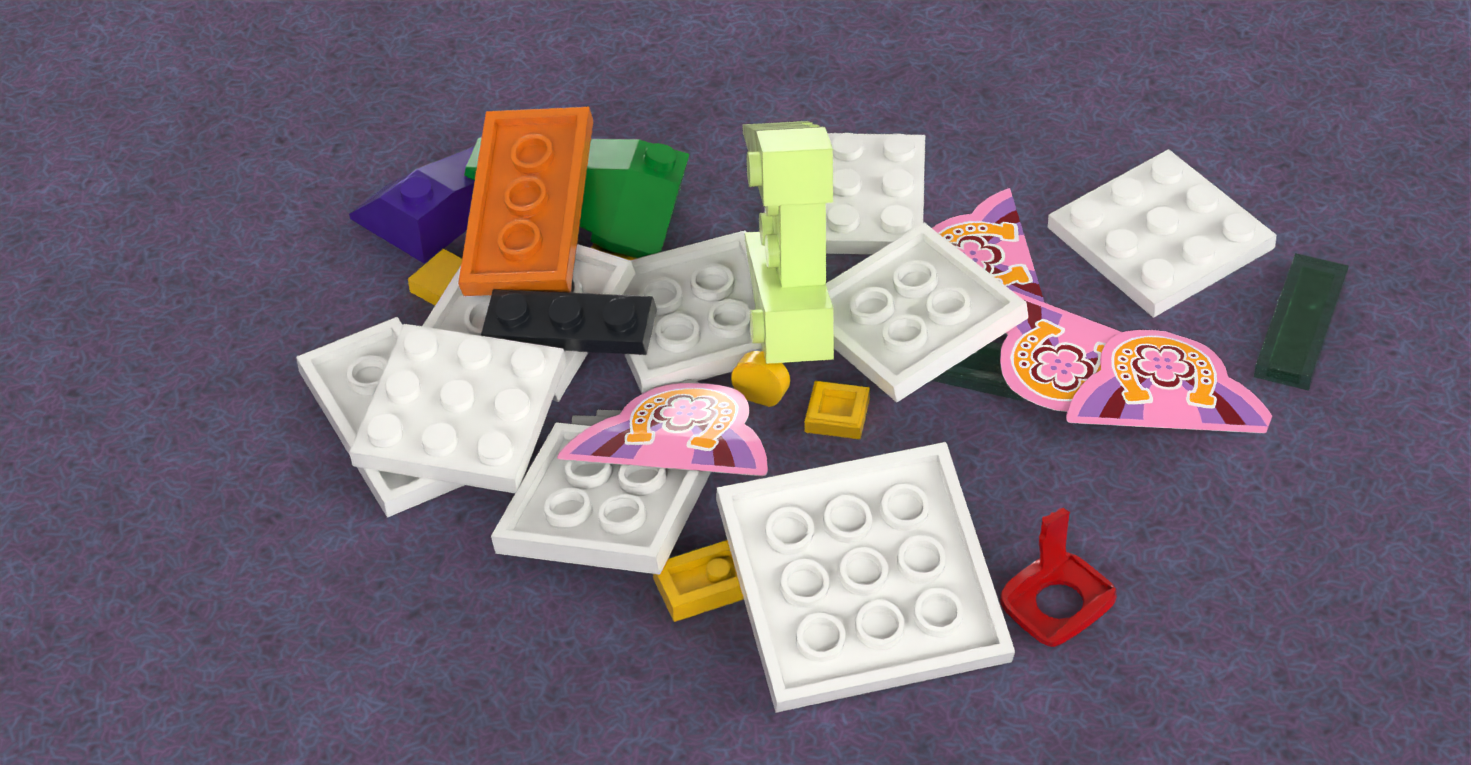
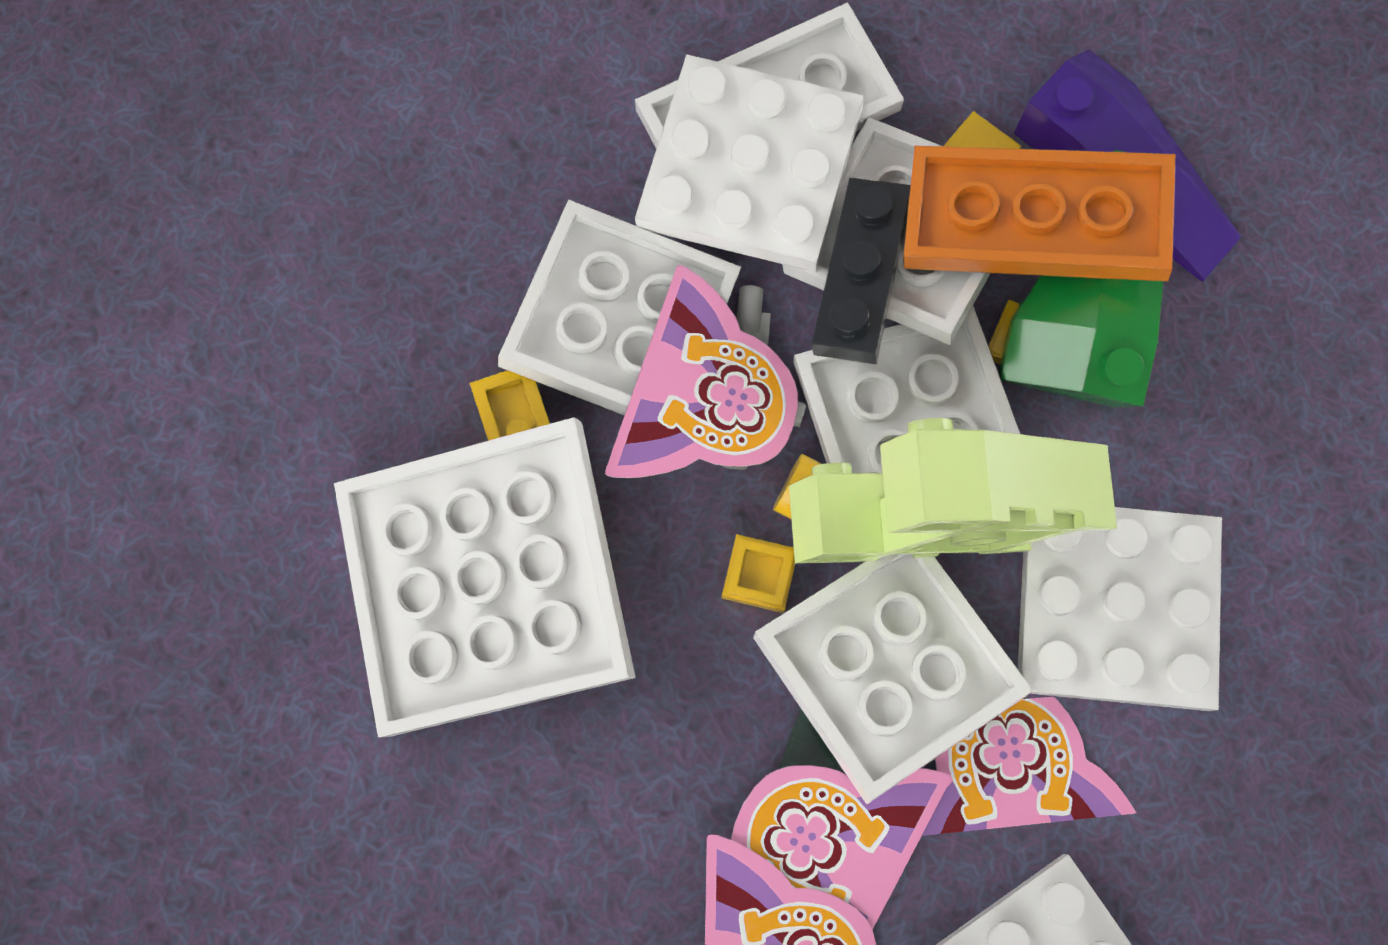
camera: 90 degrees right, 30 degrees up
(1056, 568) = (502, 812): red piece -> none

